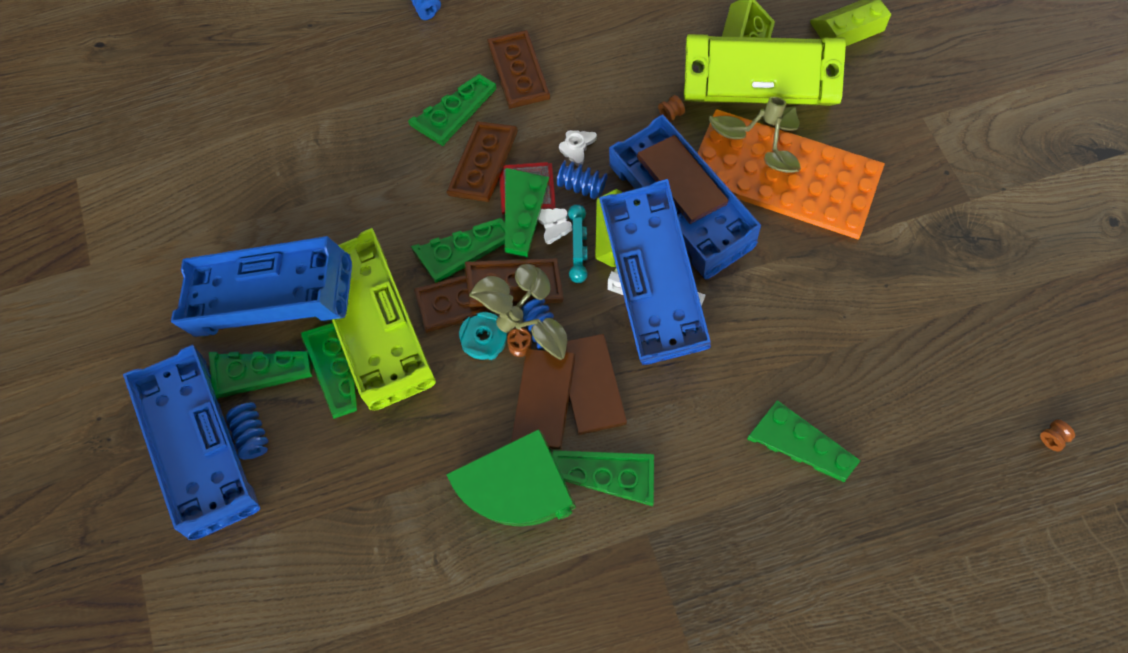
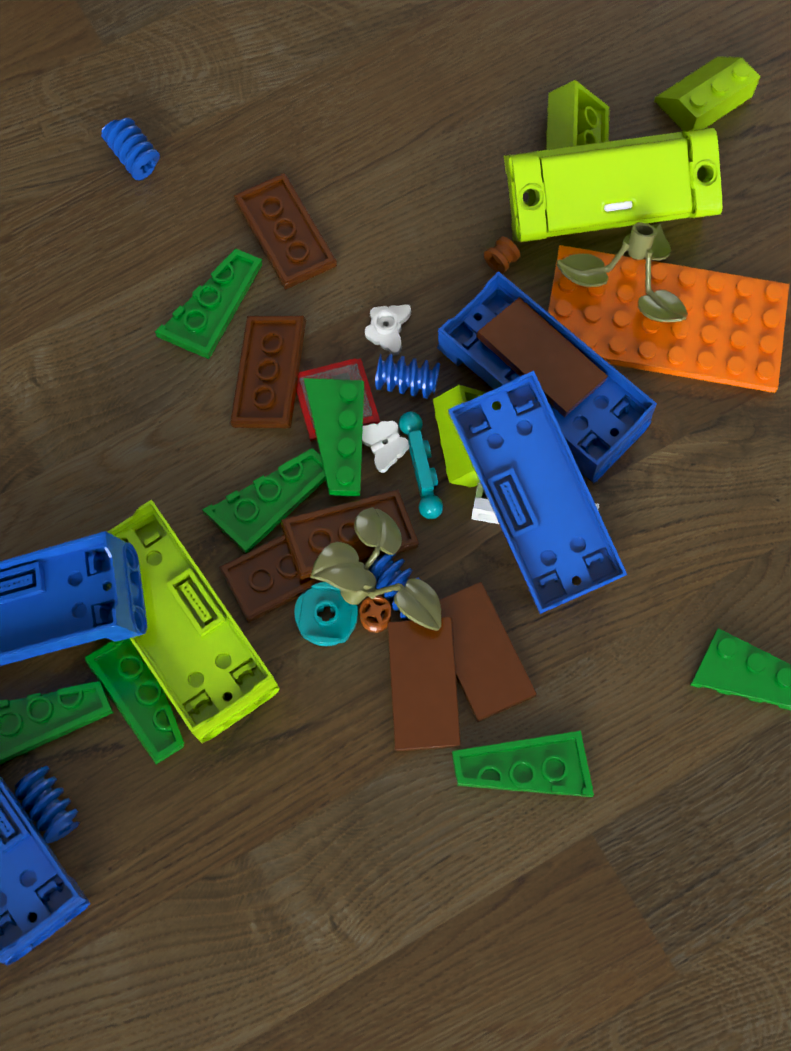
camera: 15 degrees left, 5 degrees up
(515, 484) = (416, 806): green brick -> none

